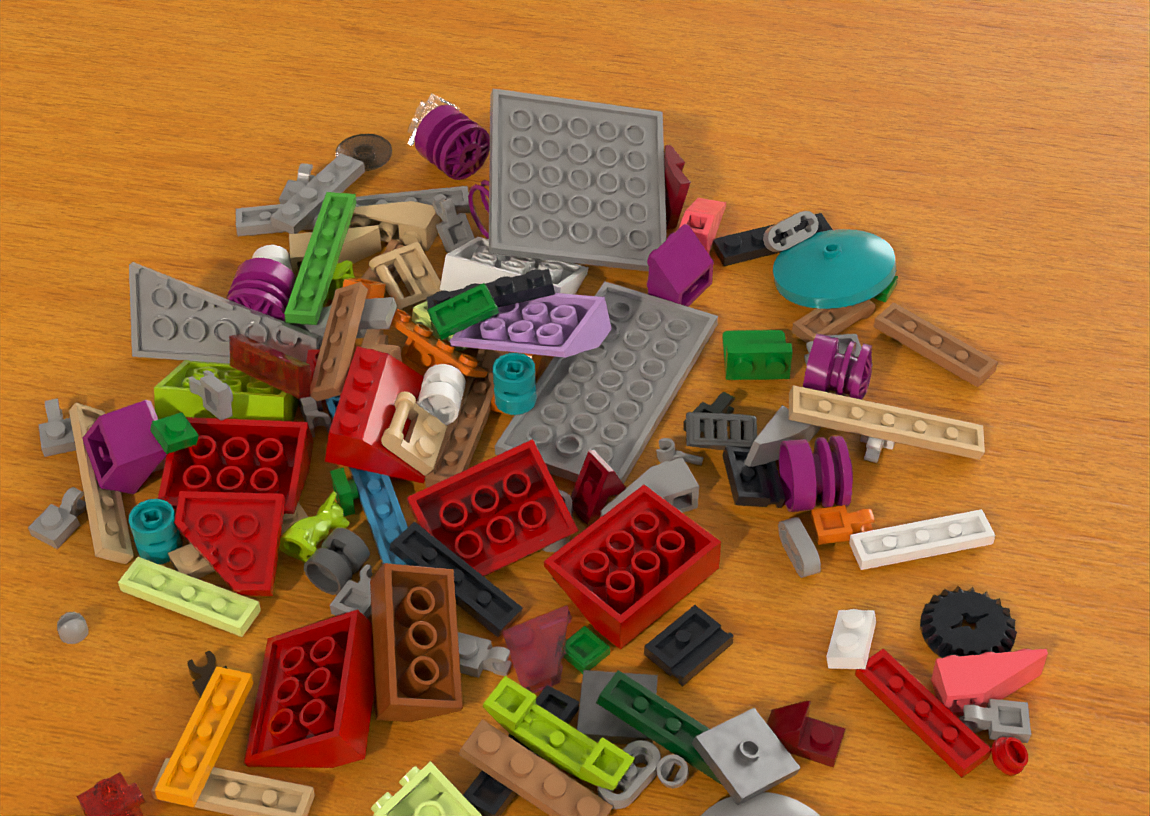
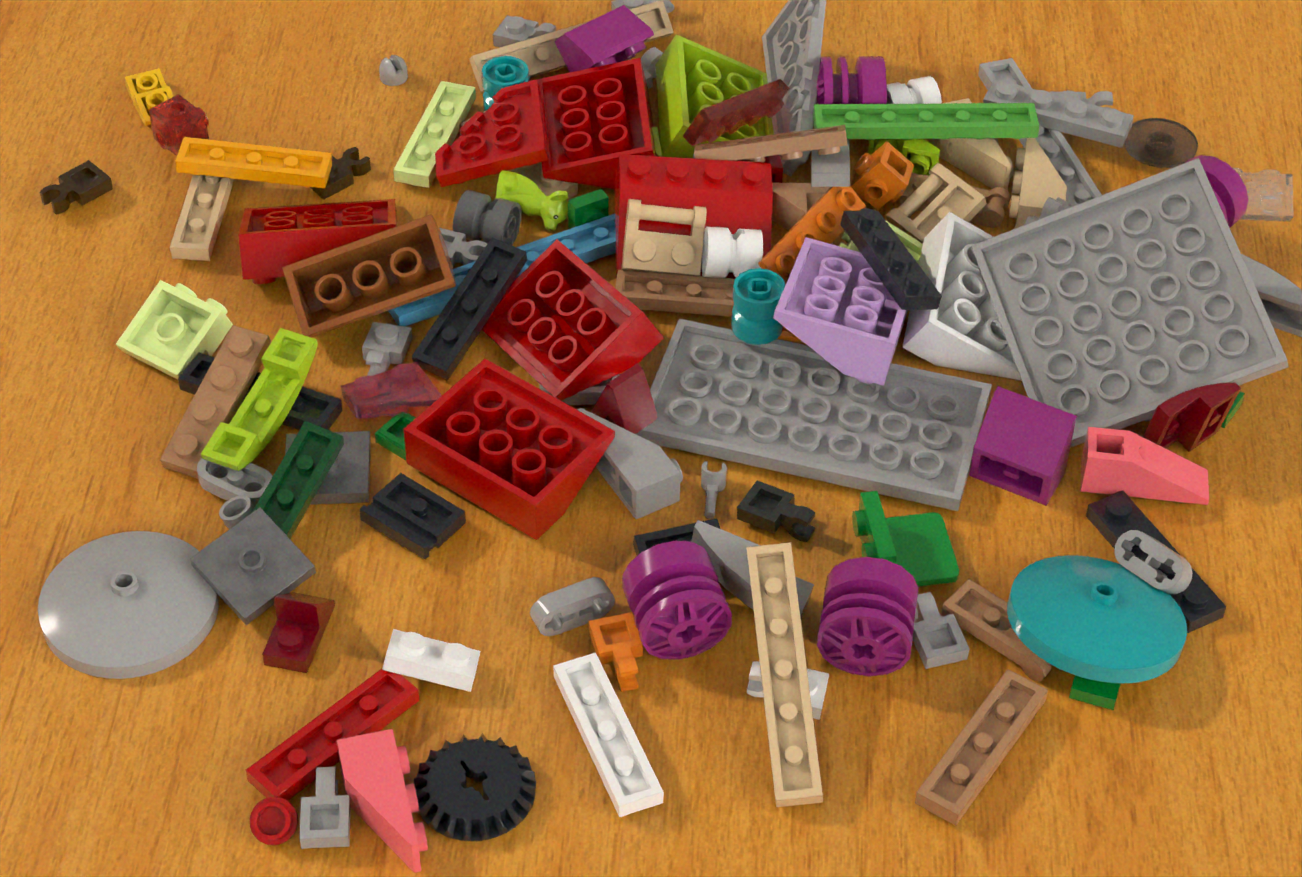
camera: 80 degrees right, 0 degrees up
(174, 433) = (610, 57): green plate -> none
(215, 394) = (665, 69): light grey plate -> none
(463, 311) = (844, 232): green plate -> none
(742, 430) = (762, 534): dark grey slope -> none

